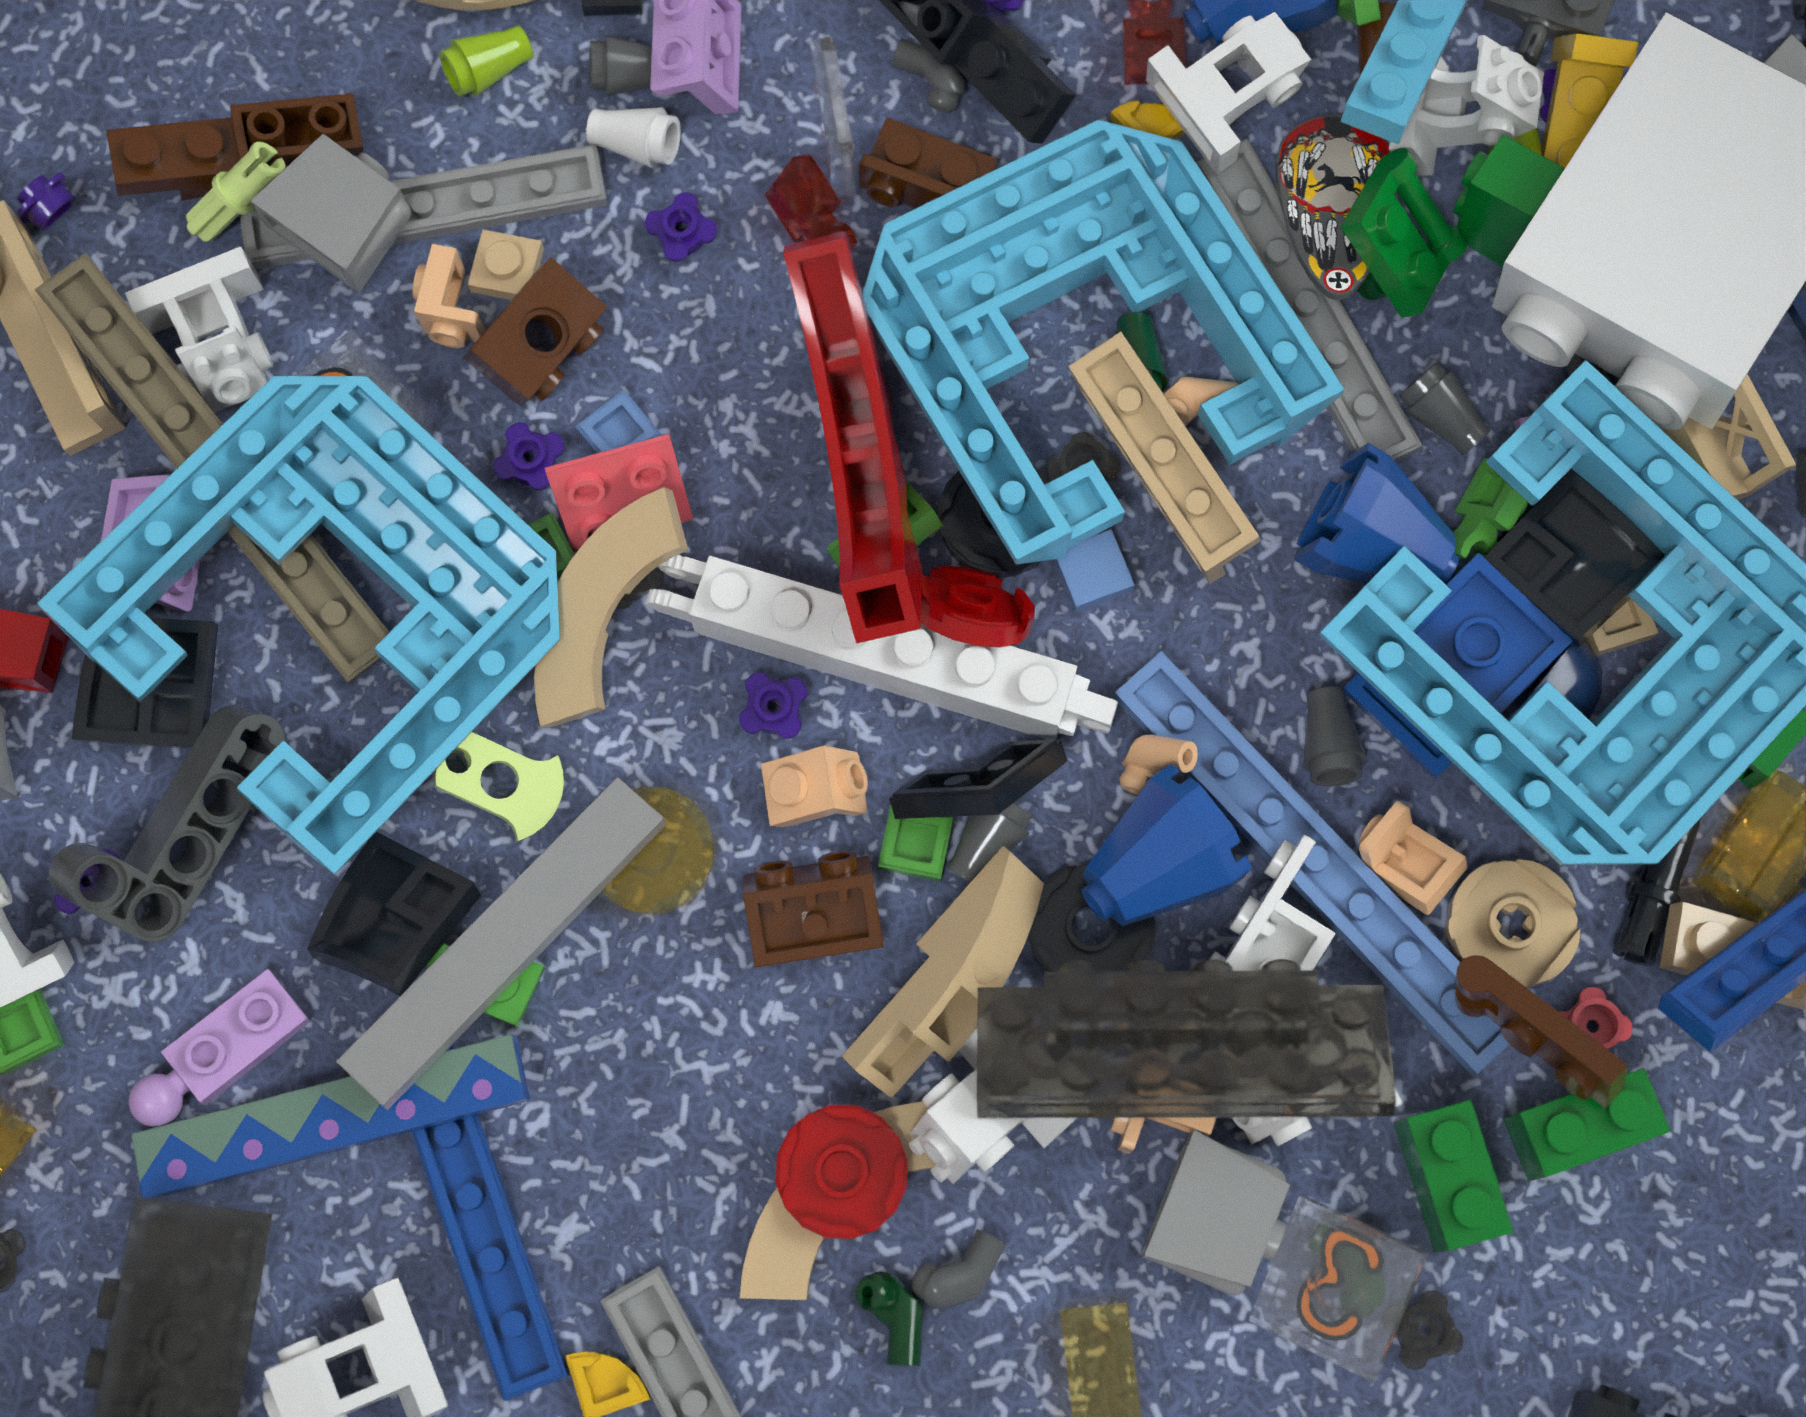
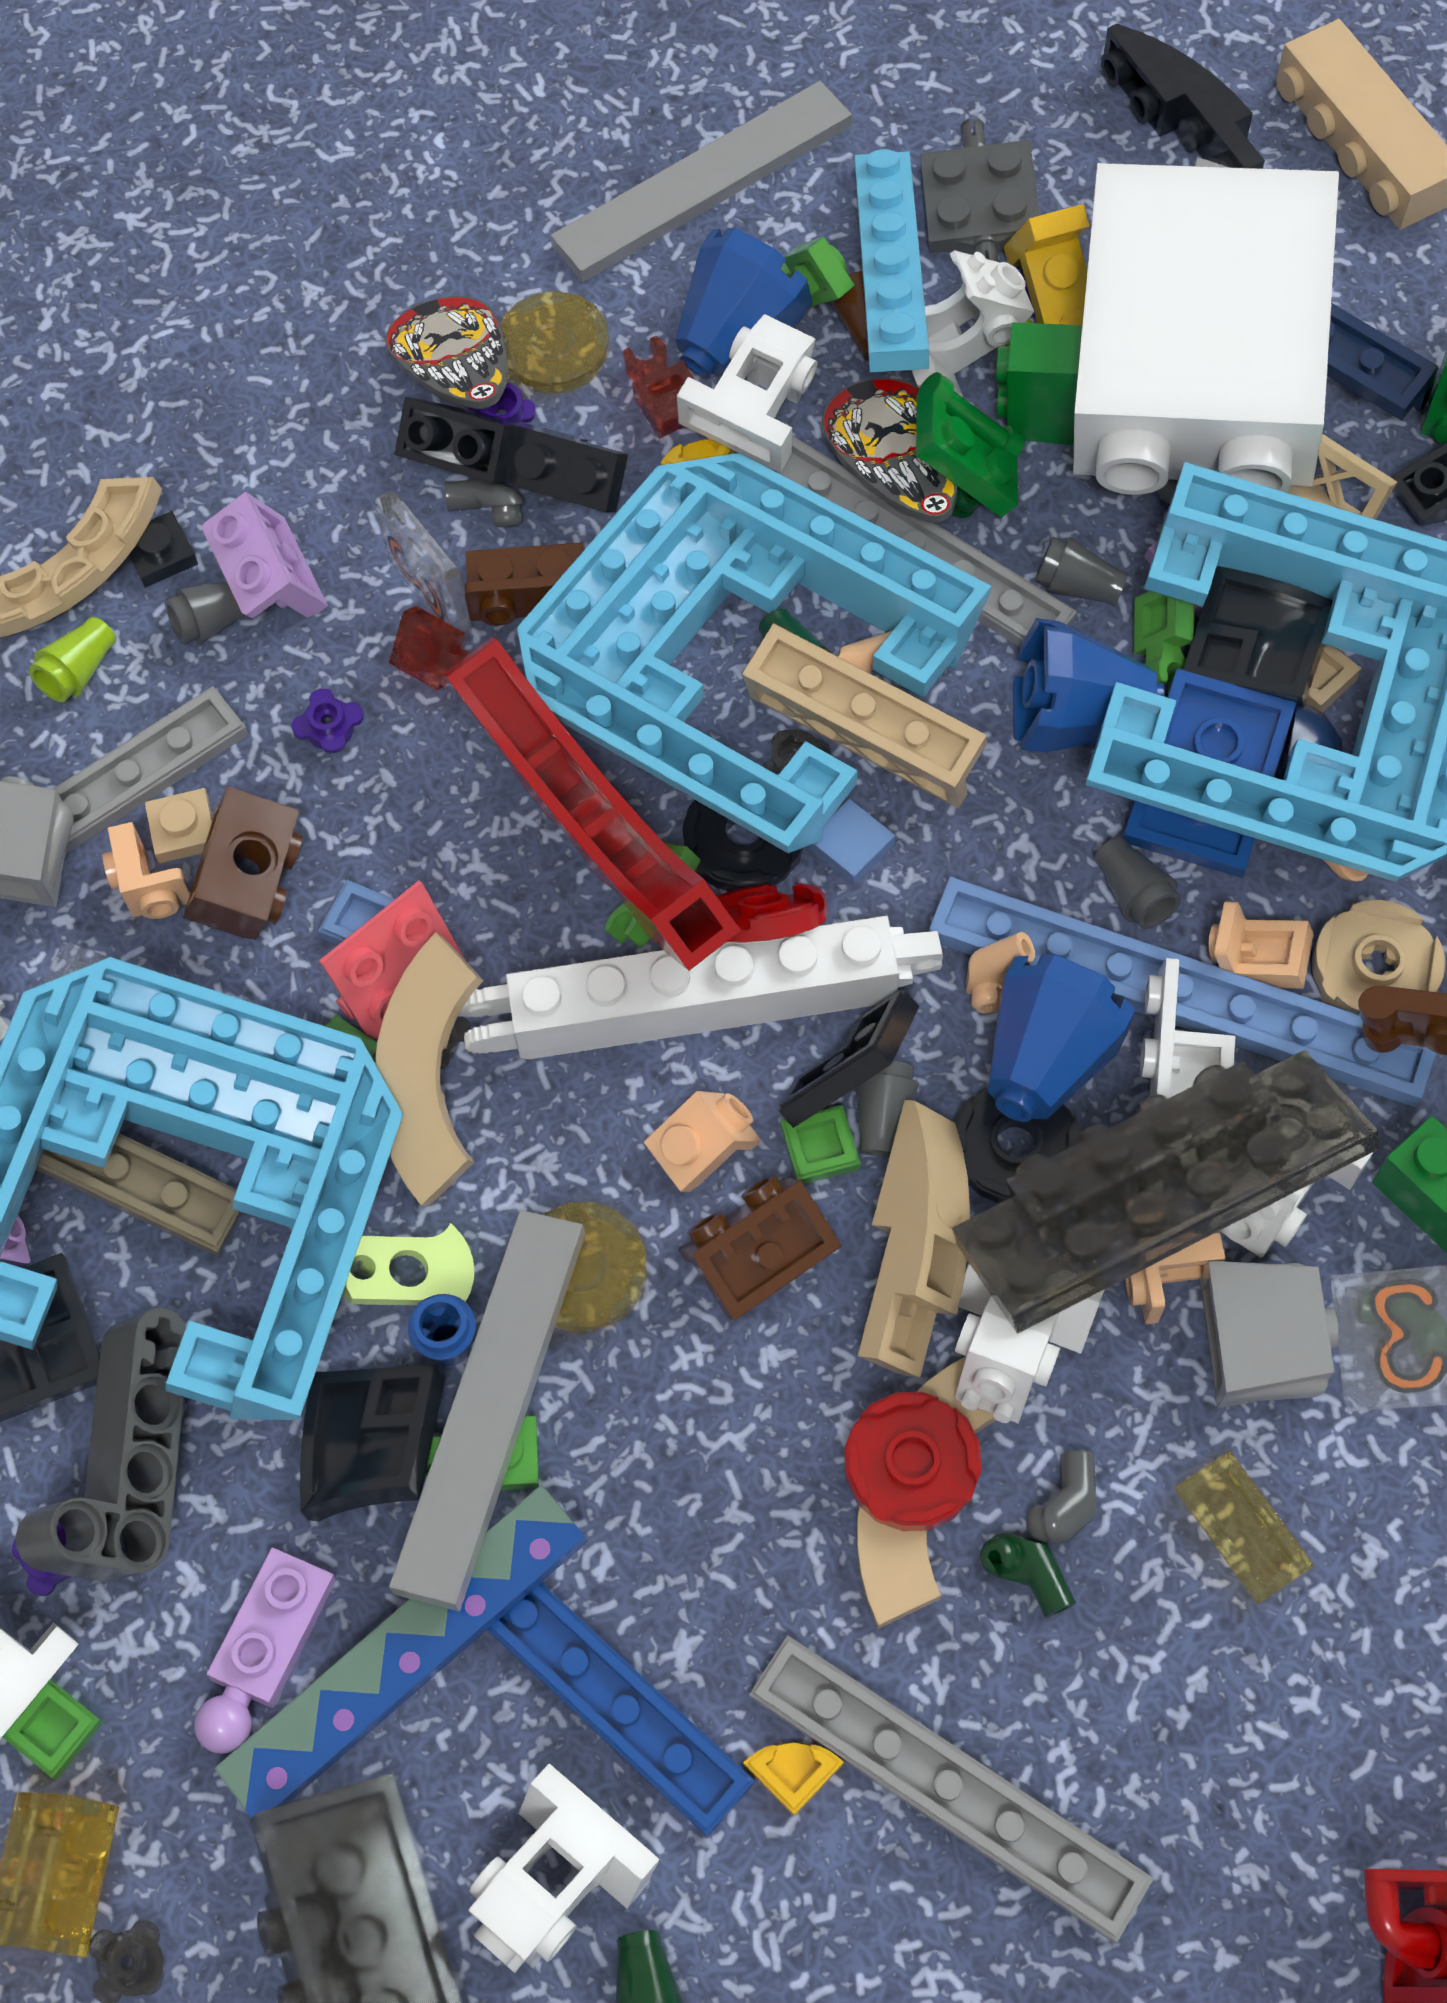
camera: 25 degrees left, 10 degrees down
(485, 844) = (436, 1318): none -> blue cone
(521, 441) = (295, 991): dark purple plate -> none
(638, 134) = (246, 661): white cone -> none
(783, 720) = (623, 1103): dark purple plate -> none

